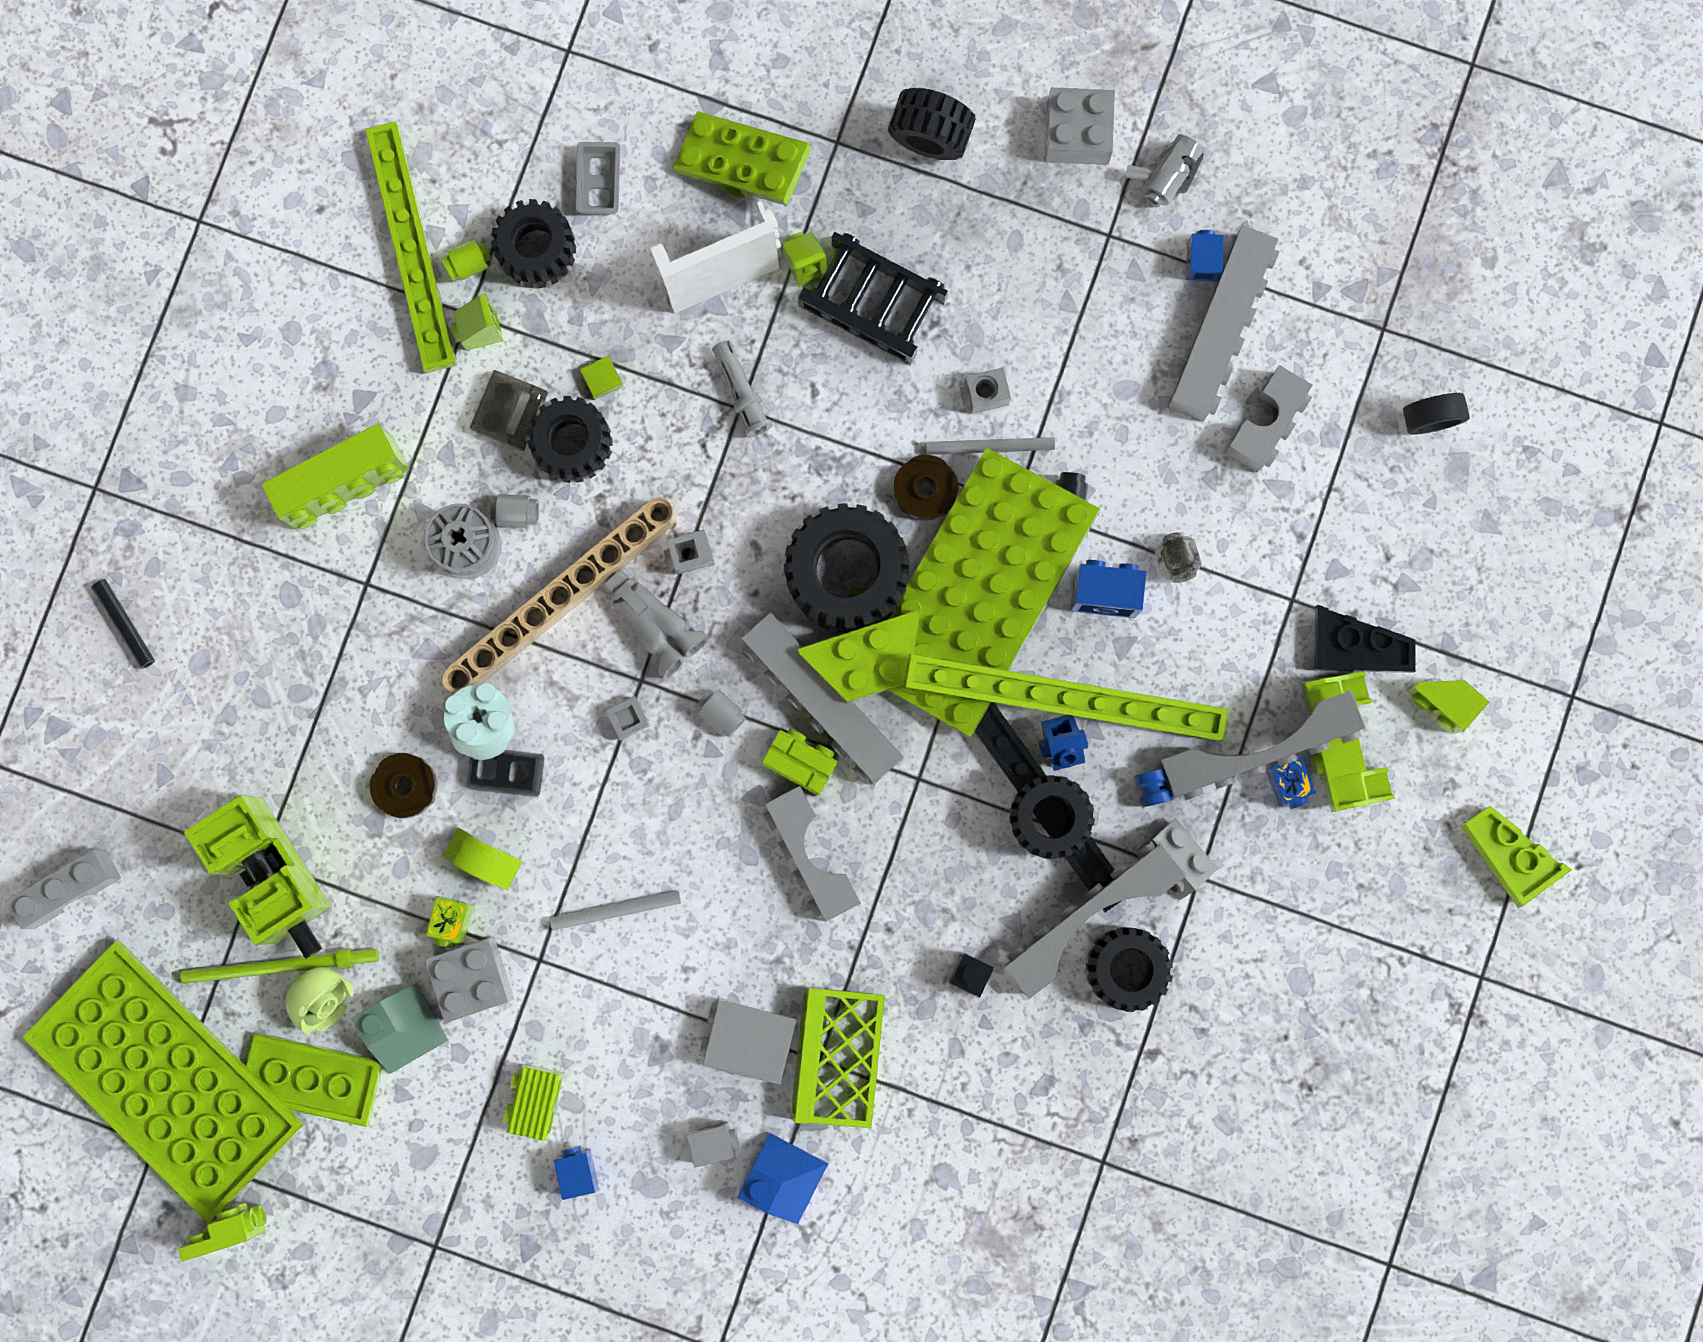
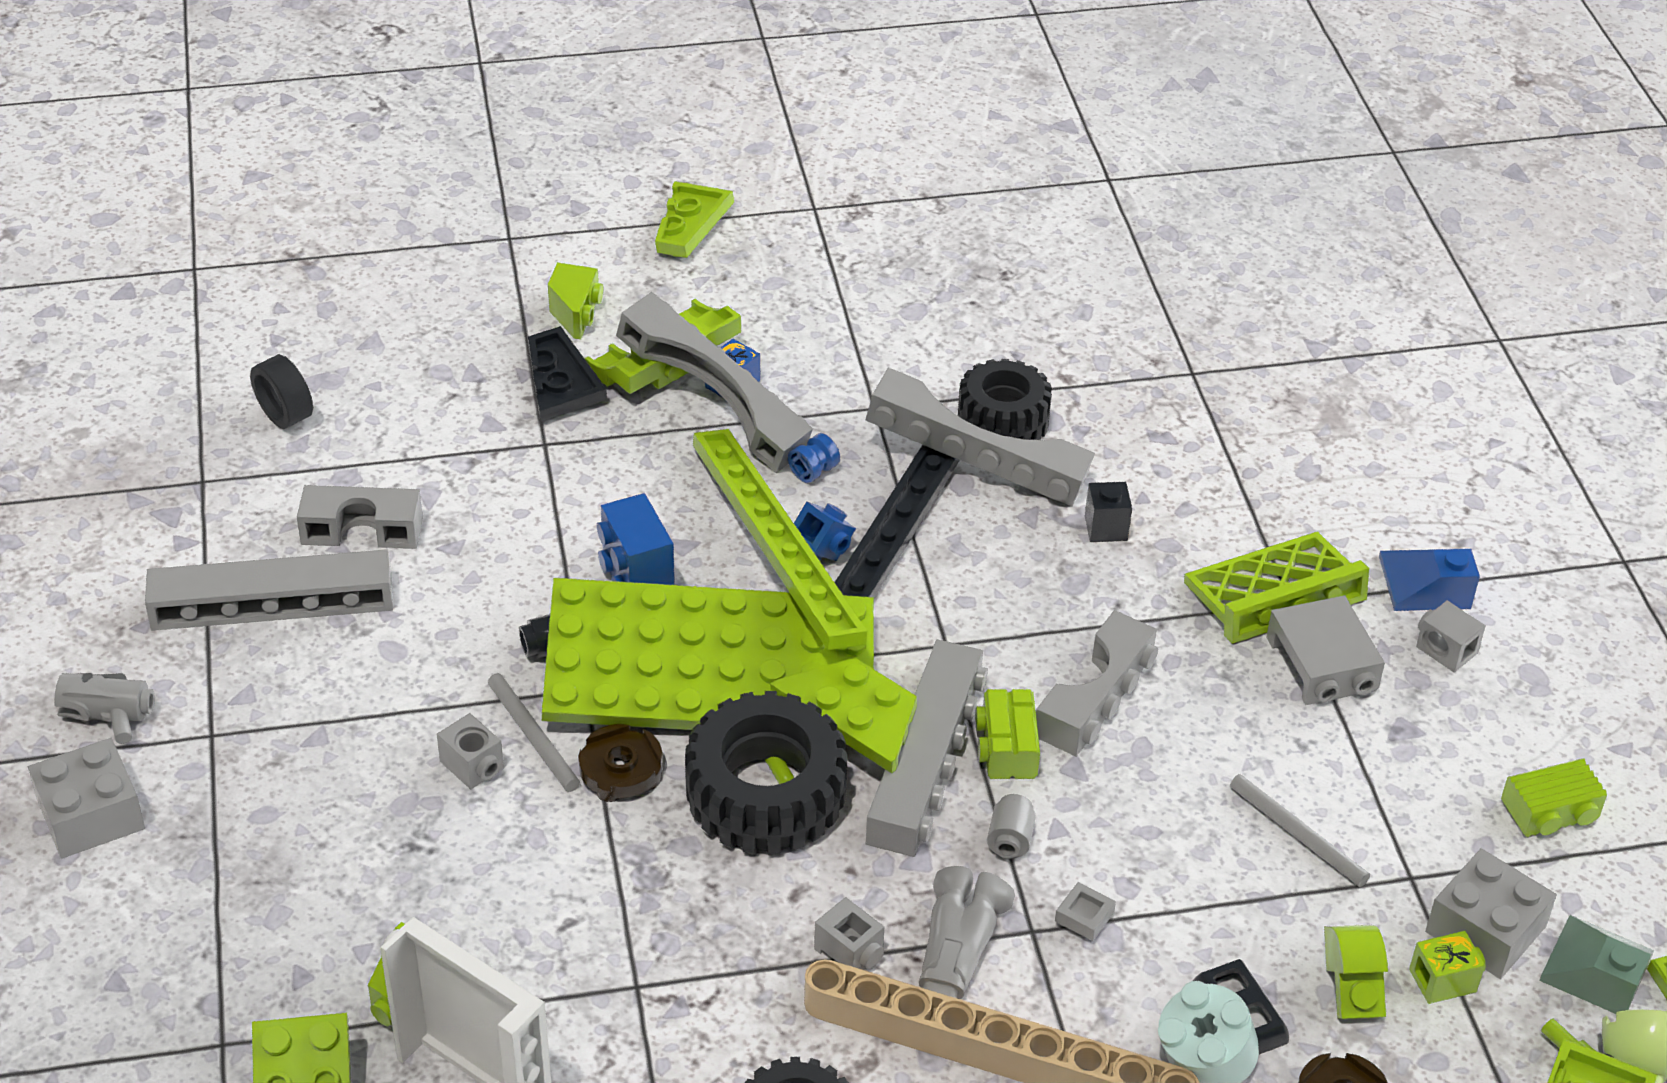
camera: 125 degrees left, 40 degrees down
(576, 1172) = (1585, 728): blue brick -> none
(746, 402) = (626, 970): light grey pin -> none
(846, 315) = (457, 885): black fence -> none
(931, 124) = (158, 918): black tyre -> none
(1081, 817) = (906, 497): black tyre -> none
(1178, 557) = (560, 526): clear smoke head -> none
(1188, 855) = (854, 429): light grey bracket -> none
(1204, 256) = (196, 632): blue brick -> none

